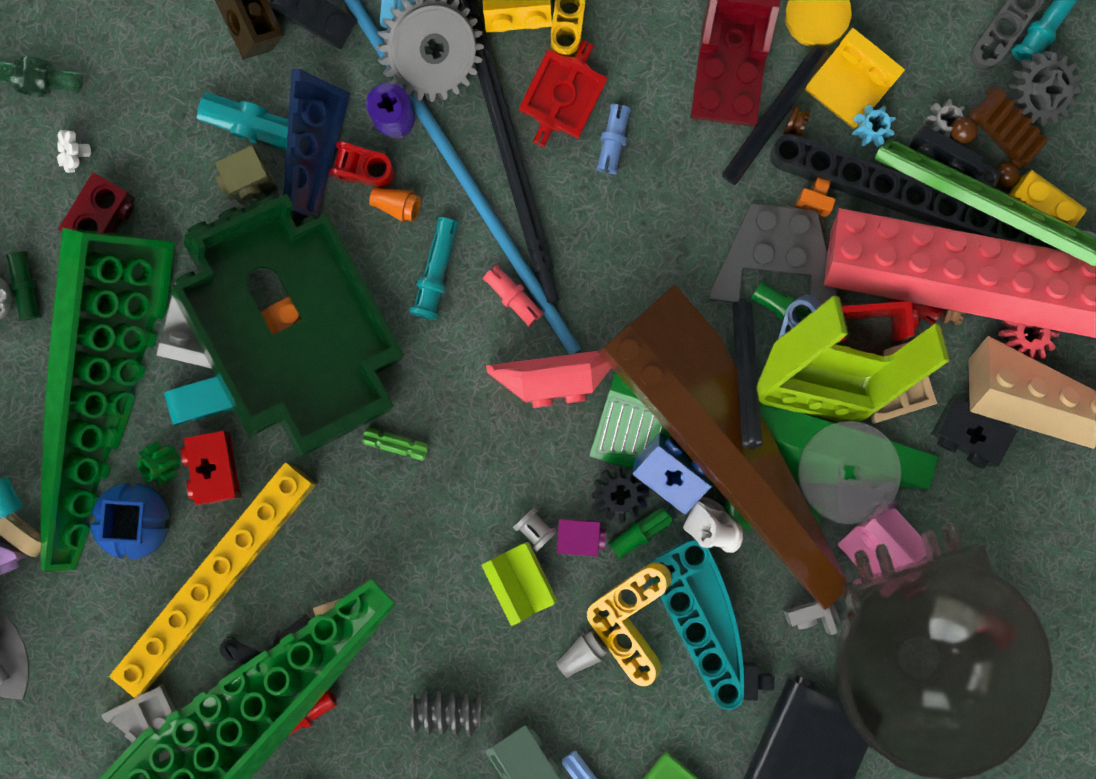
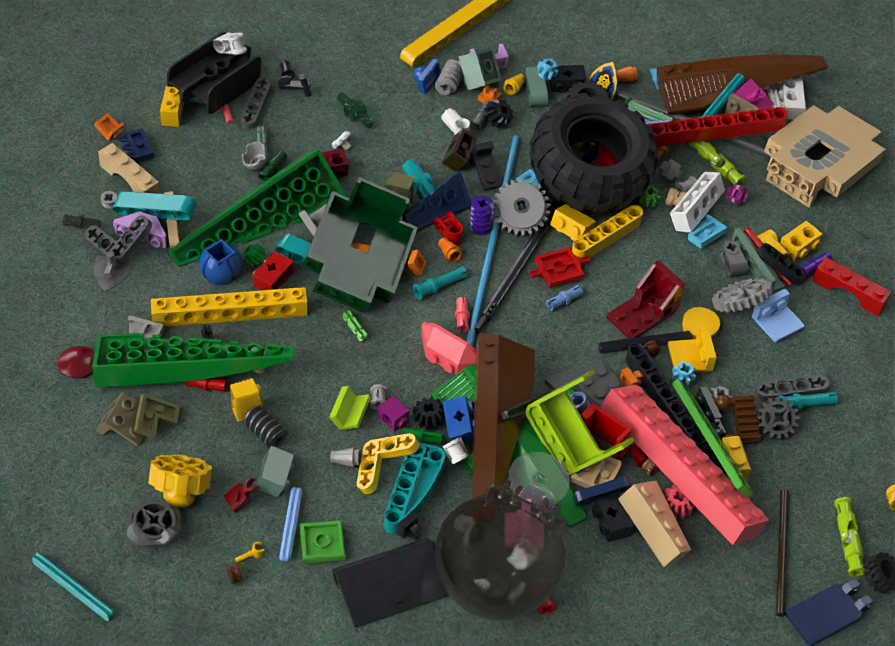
camera: 40 degrees right, 35 degrees down
(376, 269) = (415, 263): none -> orange tile
(387, 705) = (244, 397): none -> yellow brick
(938, 414) = (589, 494): none -> dark blue beam

